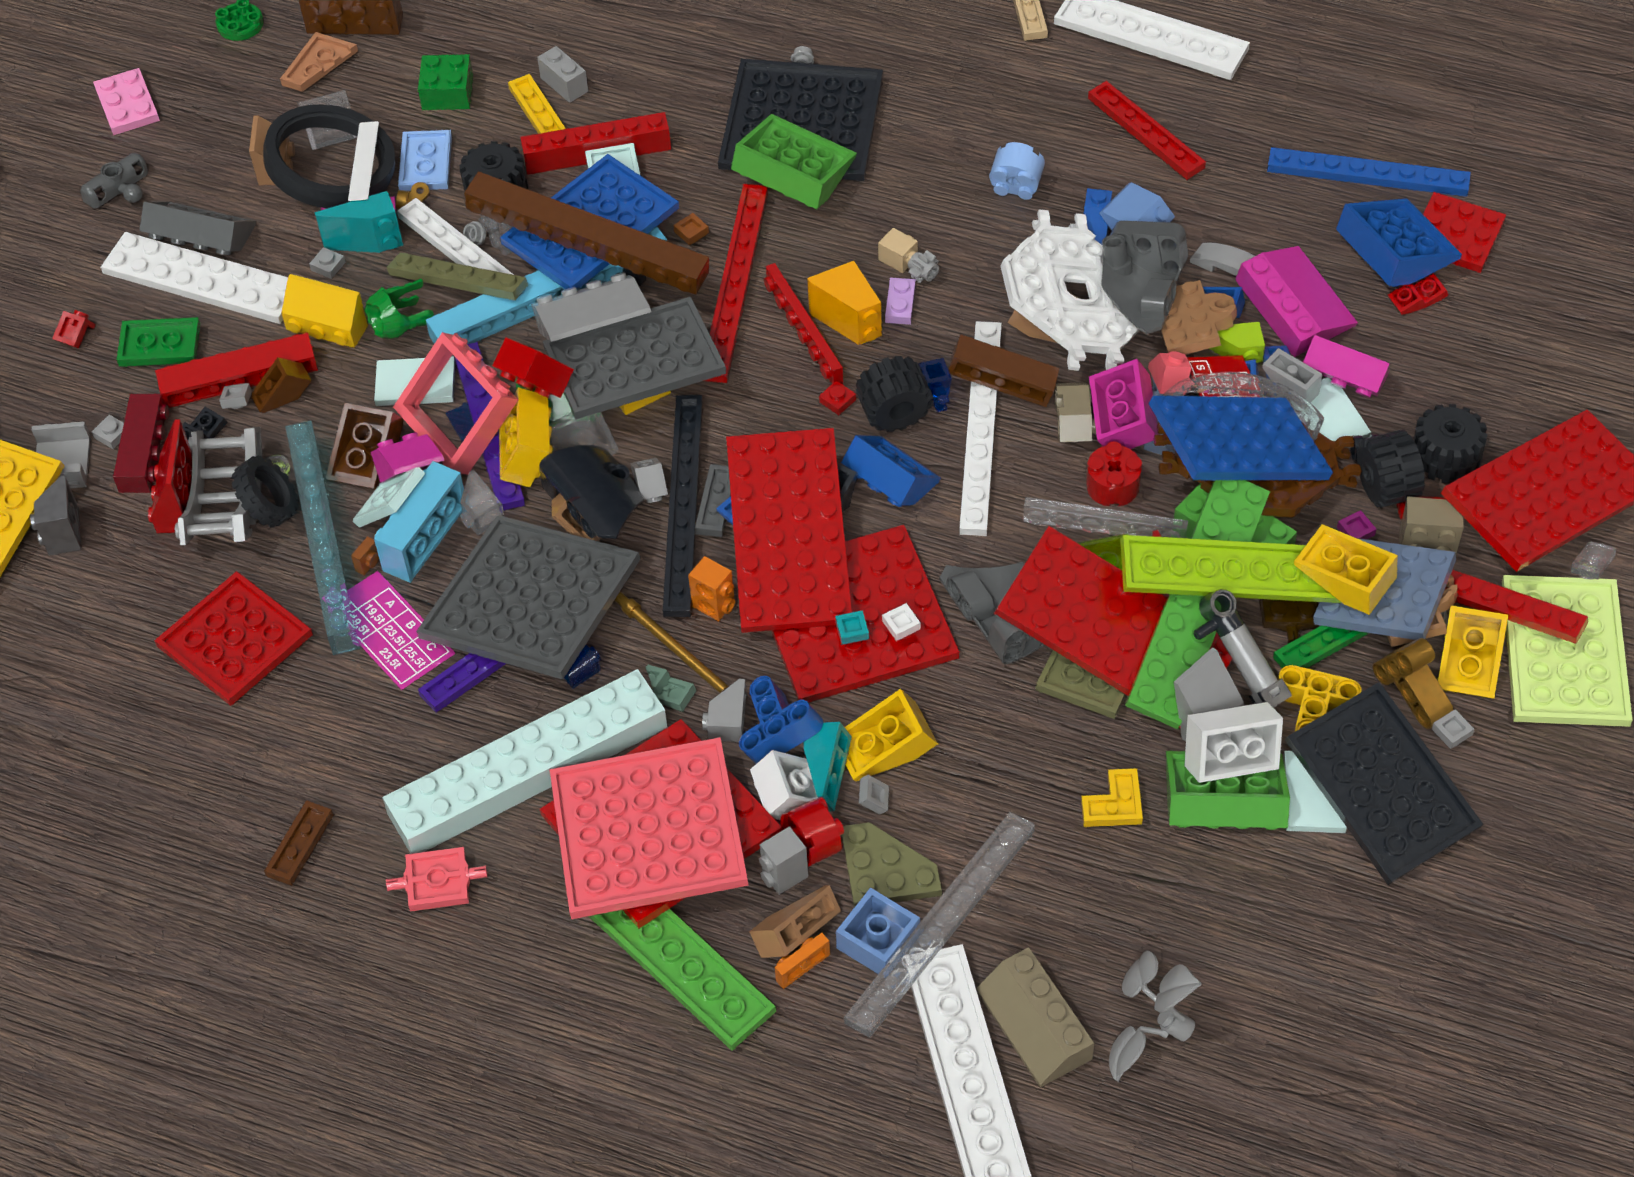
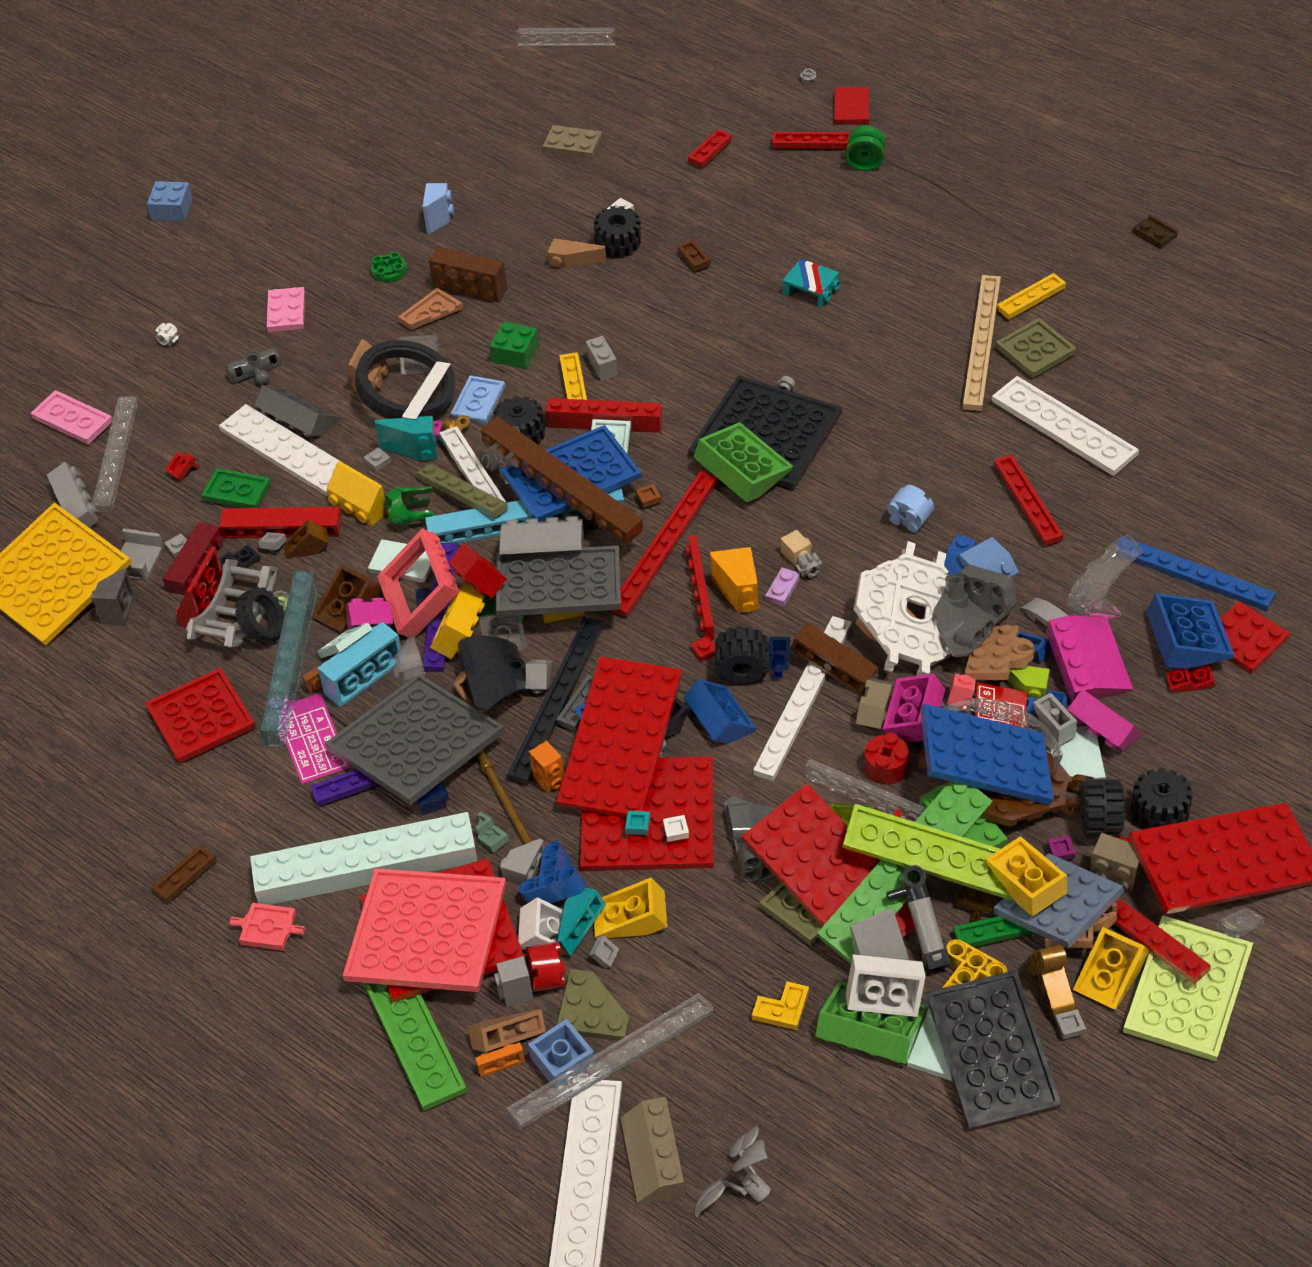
camera: 20 degrees right, 5 degrees down
(1265, 196) = (1089, 590): none -> clear windscreen

